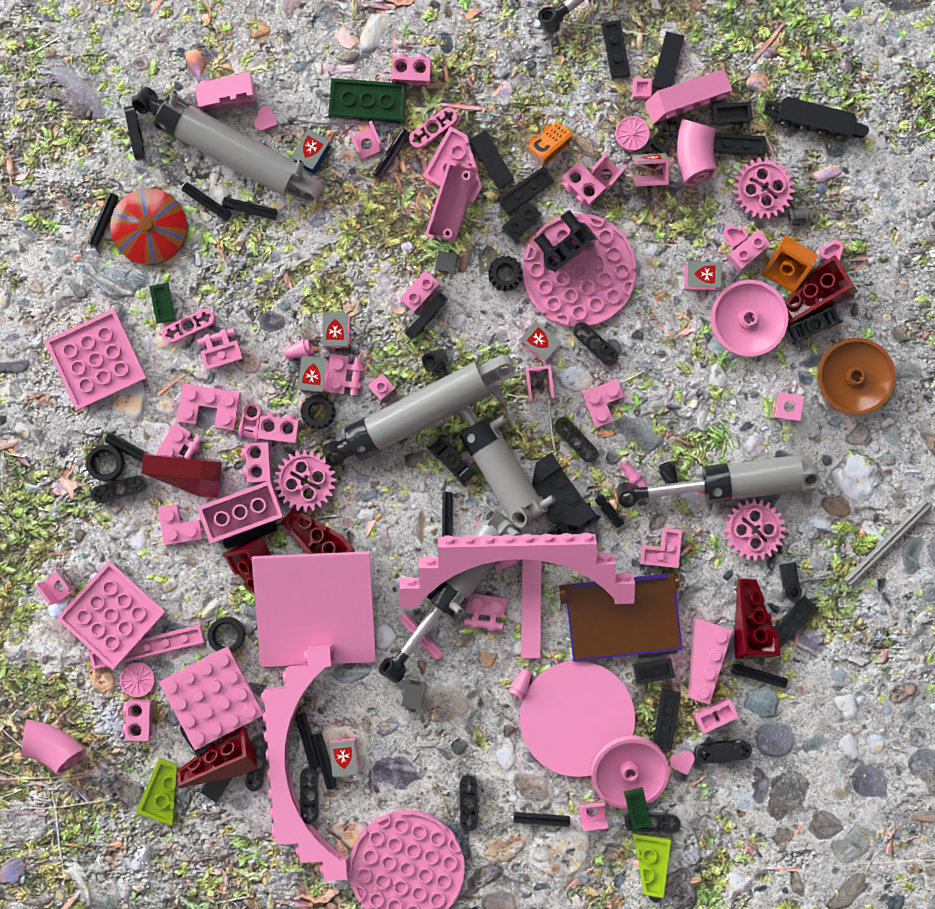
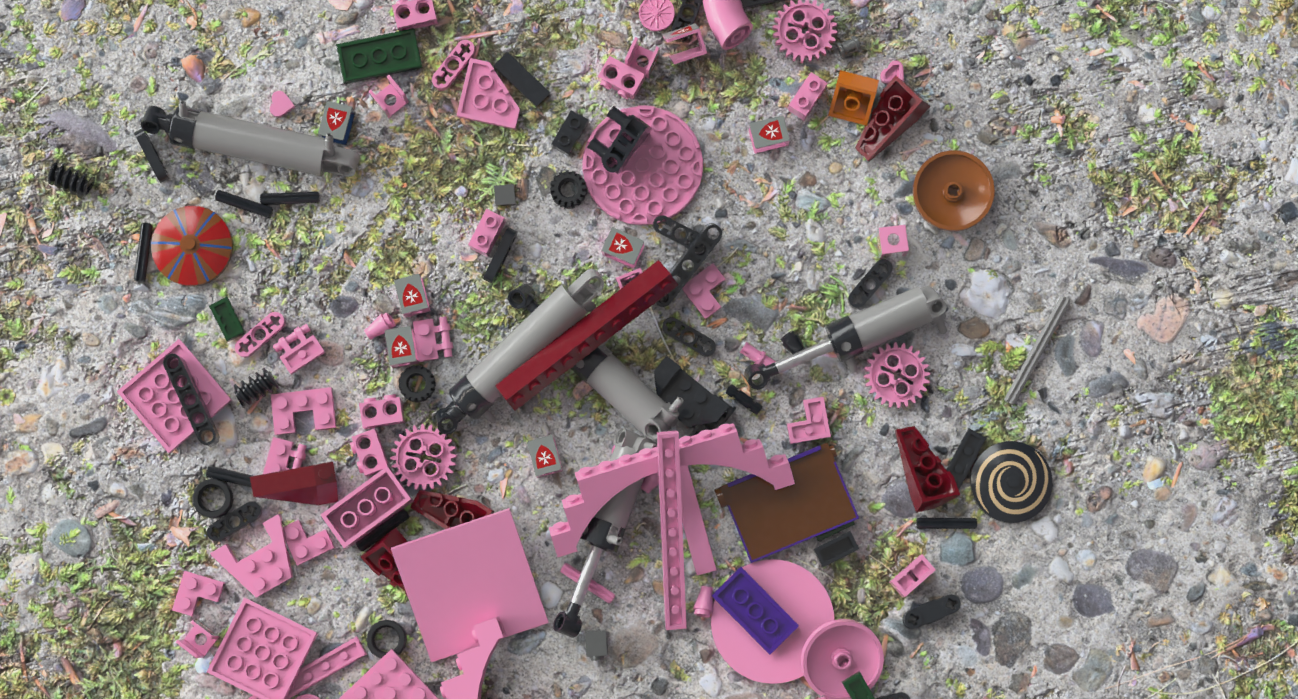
camera: 10 degrees left, 5 degrees down
(53, 134) = (70, 182): none -> black piece
(64, 538) = (193, 587): none -> bright pink plate
(103, 361) = (183, 394): none -> black beam
(132, 539) = (264, 567): none -> bright pink wing
(170, 373) = (255, 387): none -> black piece
(226, 92) = (234, 88): bright pink wedge -> none
(250, 423) = (350, 415): bright pink piece -> none
(381, 387) = (475, 340): bright pink brick -> none
(391, 154) = (418, 102): black axle -> none
(414, 511) = (544, 456): none -> light grey piece
(447, 513) = (578, 447): black axle -> none
(451, 201) = (492, 132): bright pink piece -> none
(461, 466) = (578, 399): black piece -> none
(484, 414) = (586, 335): none -> dark red brick
(485, 605) = (644, 532): bright pink plate -> none
(511, 613) = (671, 530): none -> bright pink plate
(525, 190) = (565, 100): black tile -> none
(549, 143) = (576, 46): orange slope -> none
(564, 705) = (755, 610): none -> dark purple plate
(598, 365) = (697, 260): none -> black beam
(666, 718) = (864, 595): black tile -> none
(682, 761) = (894, 634): bright pink tile -> none
(706, 658) = (885, 512): bright pink wedge -> none
(734, 236) = (789, 85): bright pink tile -> none
(749, 318) = (828, 163): bright pink dish -> none
(768, 435) = (883, 276): none -> black beam
(789, 579) = (948, 415): black piece -> none
(826, 319) = (906, 142): black piece -> none
(828, 655) = (1011, 482): none -> black dish

